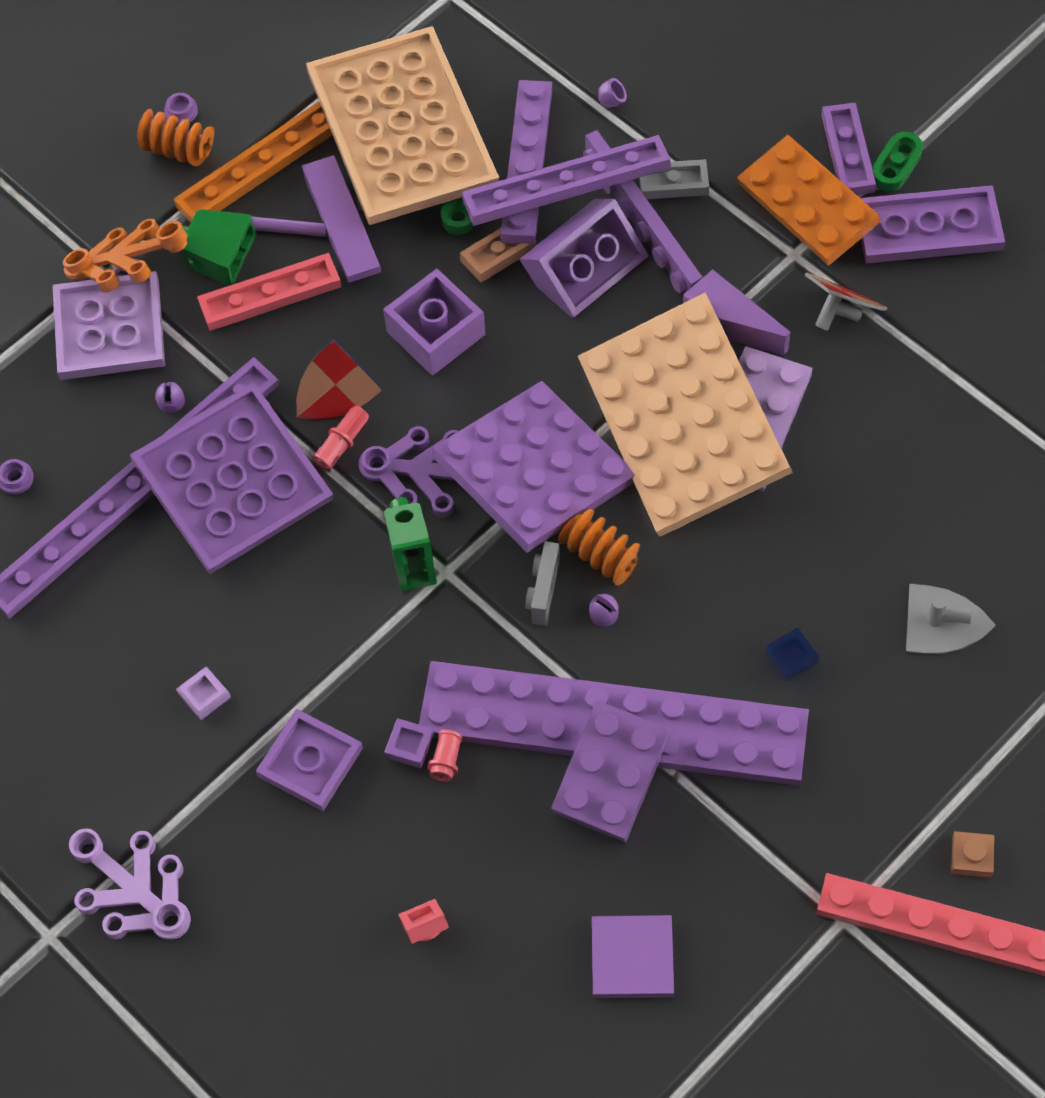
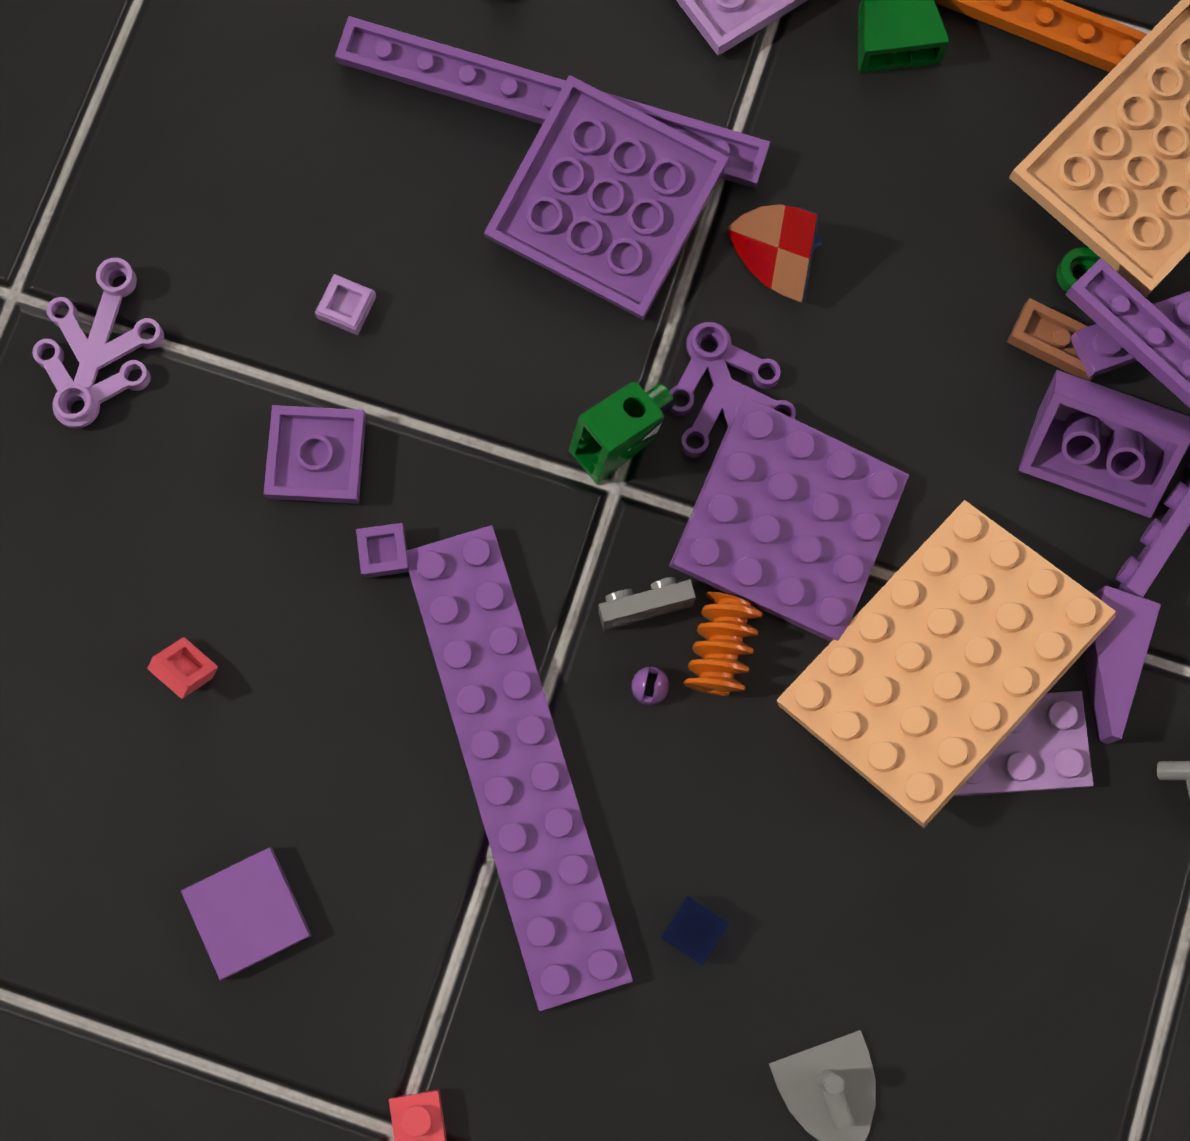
camera: 60 degrees right, 15 degrees up
(177, 397) = (686, 86): medium lavender hinge -> none
(269, 291) = (868, 115): coral plate -> none
(289, 226) = (966, 87): medium lavender bar -> none
(340, 438) = (721, 289): coral axle -> none
(341, 219) = (1005, 143): medium lavender slope -> none
(434, 321) = (919, 315): medium lavender brick -> none
(443, 765) = (386, 597): coral pin -> none
(610, 771) = (437, 790): medium lavender brick -> none

